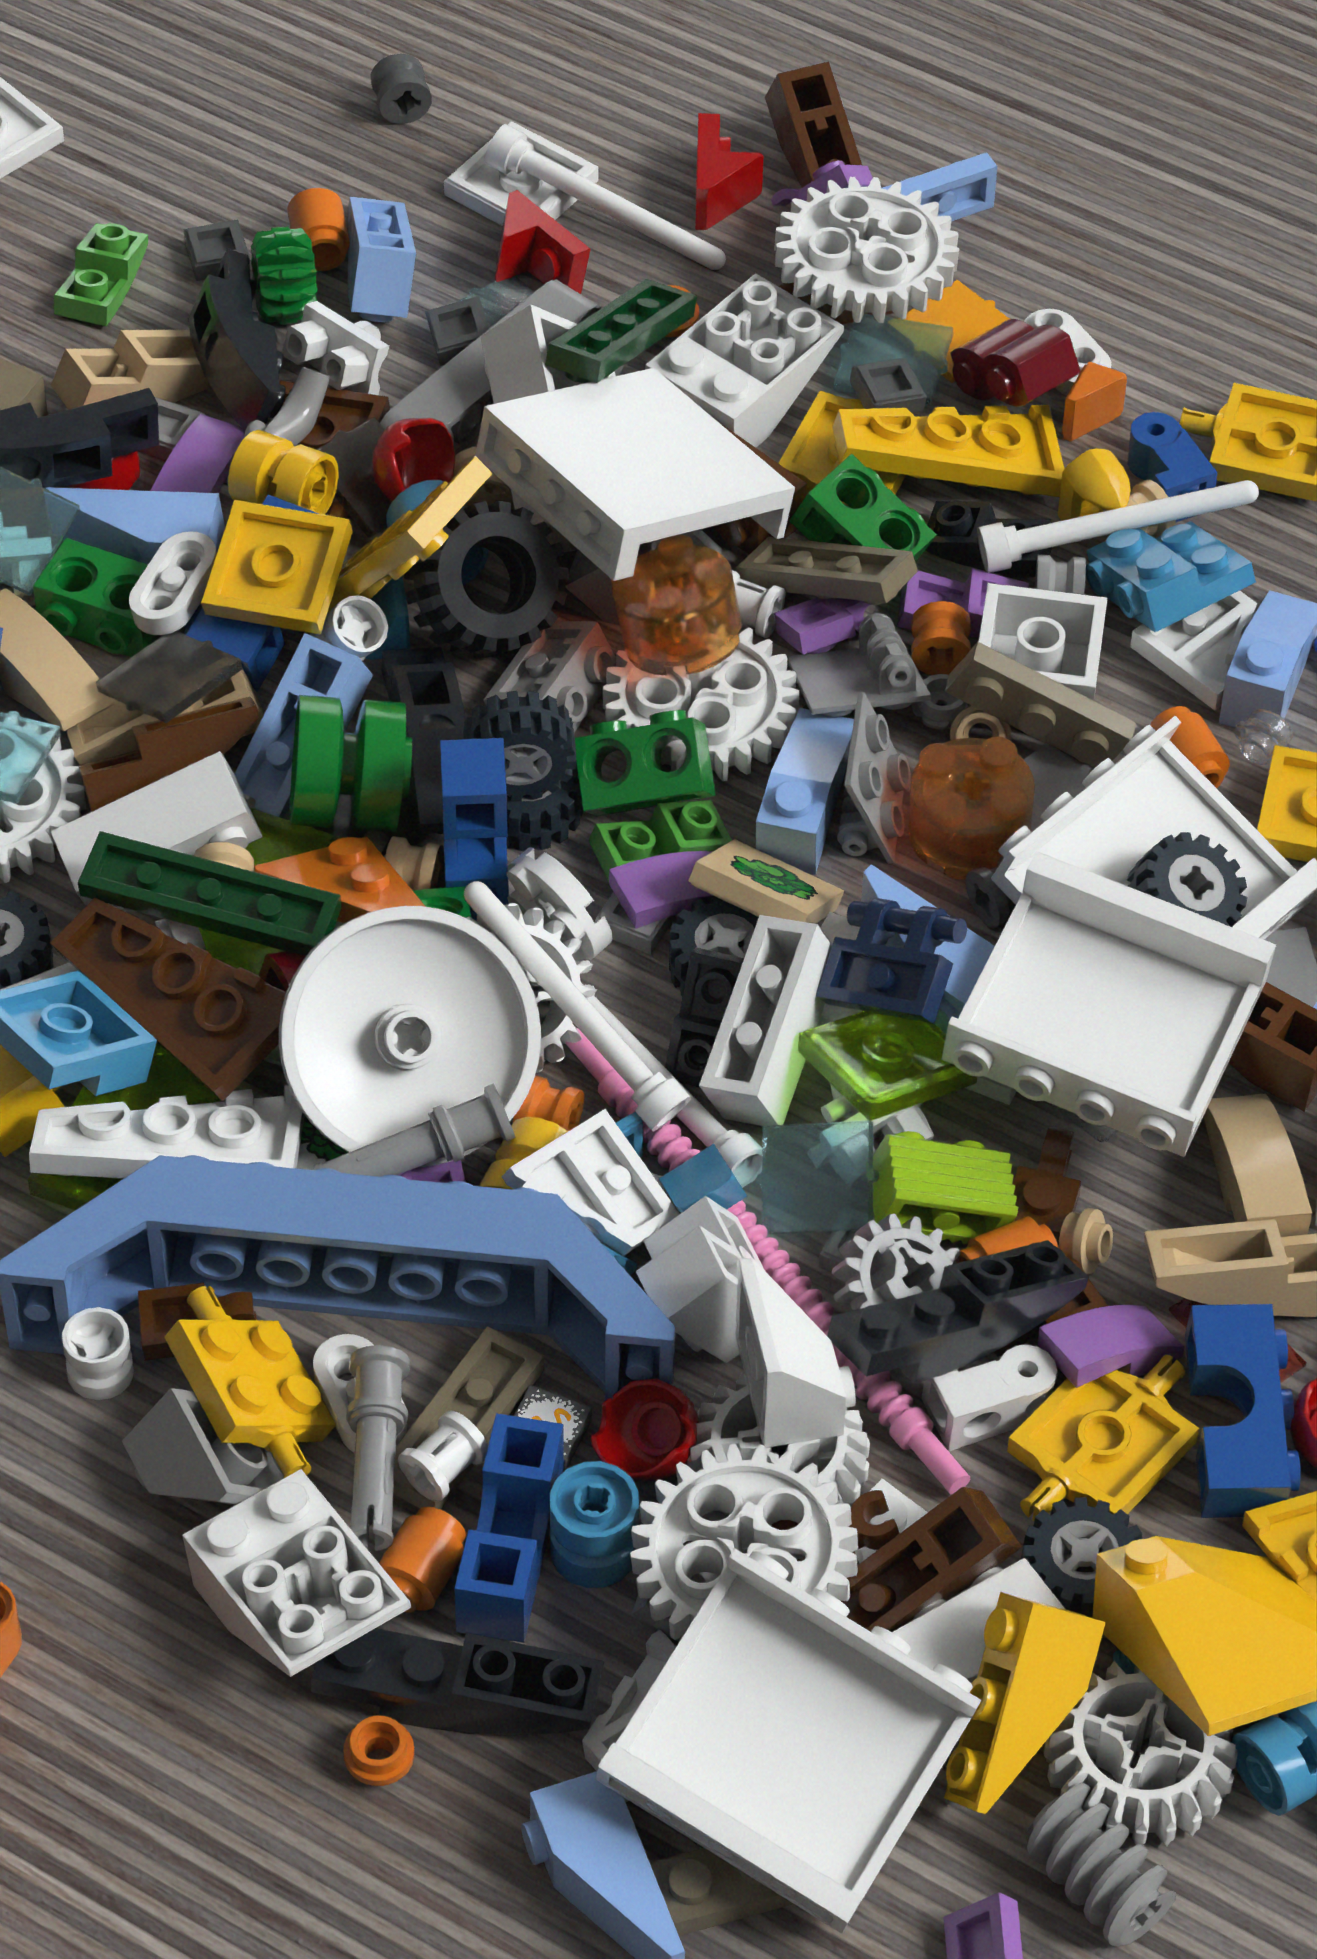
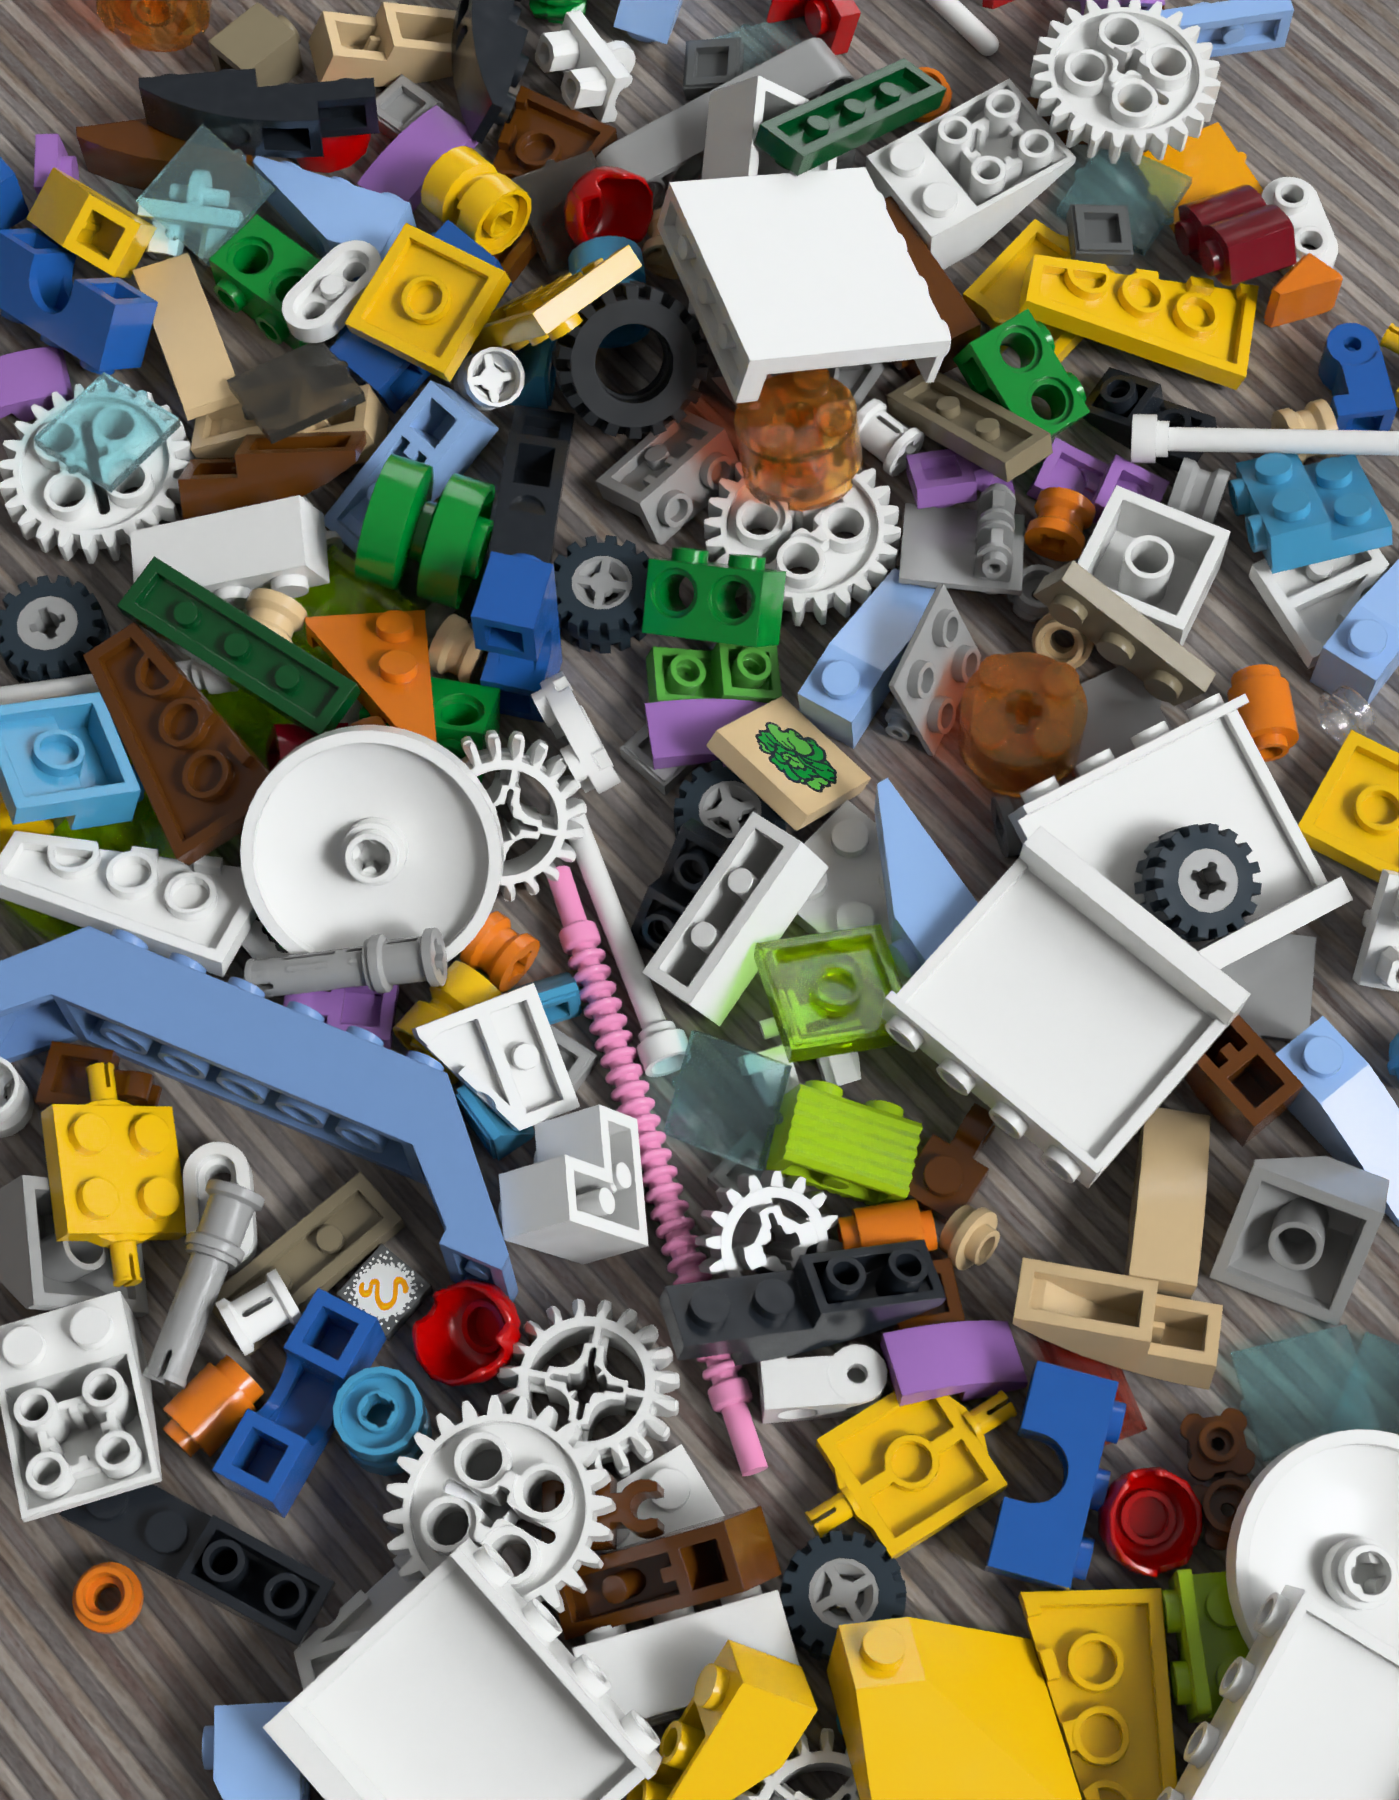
camera: 20 degrees right, 15 degrees up
(299, 410) = (517, 132): light grey arm -> none
(536, 741) = (593, 556): black wheel -> none
(654, 1094) = (595, 970): white piece -> none
(700, 1177) = (612, 1077): dark azure slope -> none
(787, 1364) = (607, 1325): white slope -> none
(886, 978) = (853, 911): dark blue plate -> none
(1093, 484) = (1267, 394): yellow plate -> none

